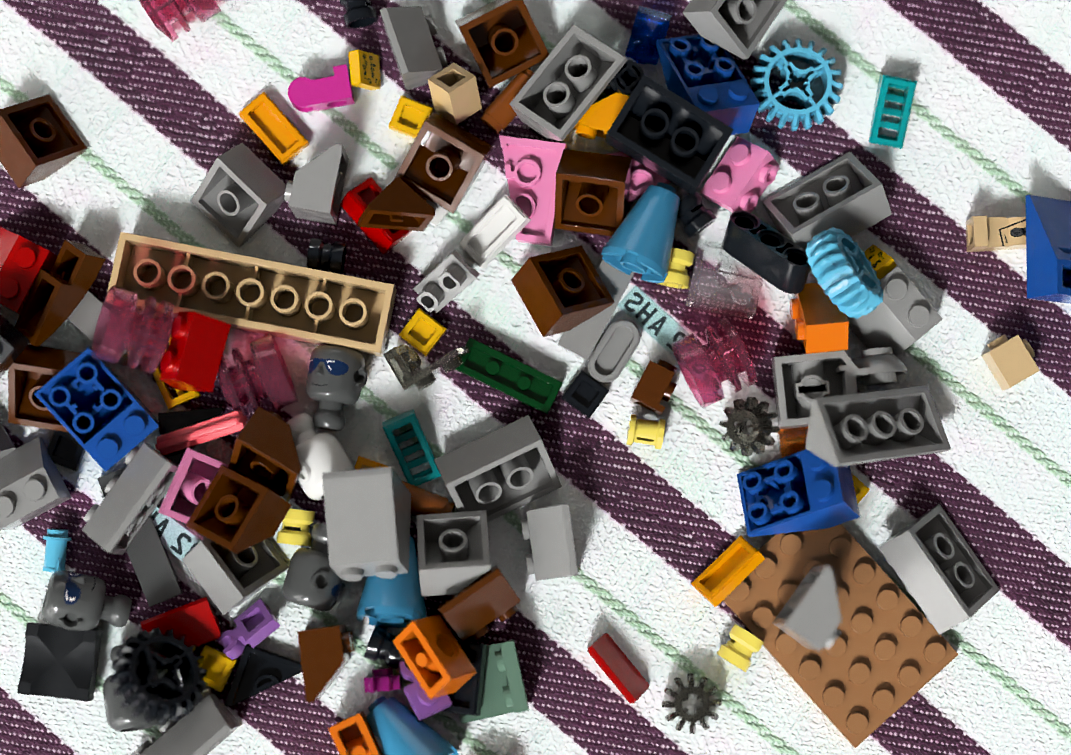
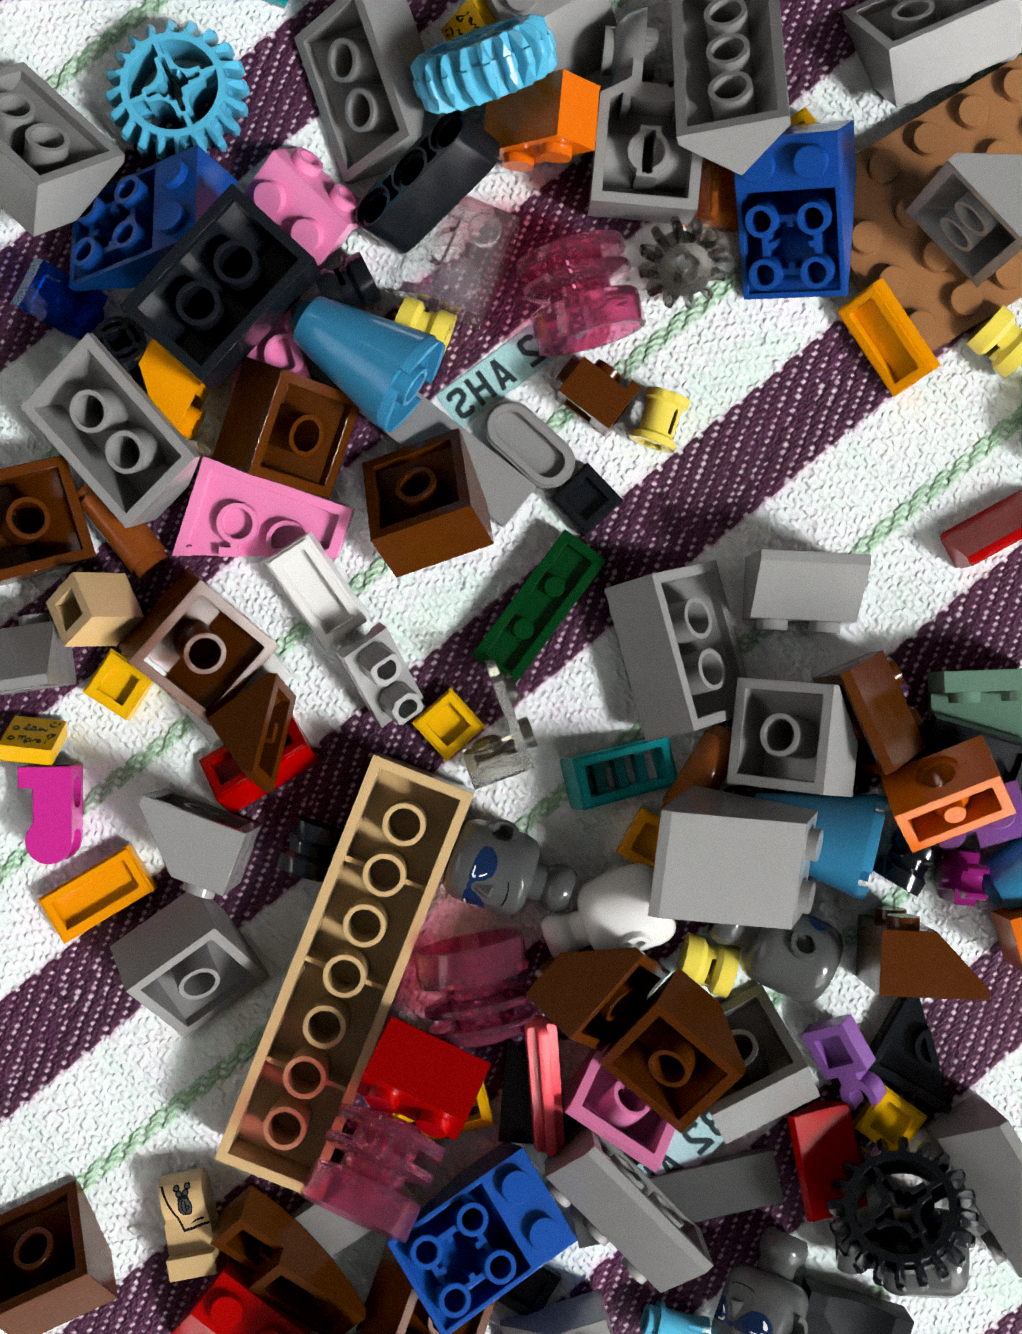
camera: 80 degrees left, 5 degrees up
(73, 225) = (189, 1224): none -> tan leg

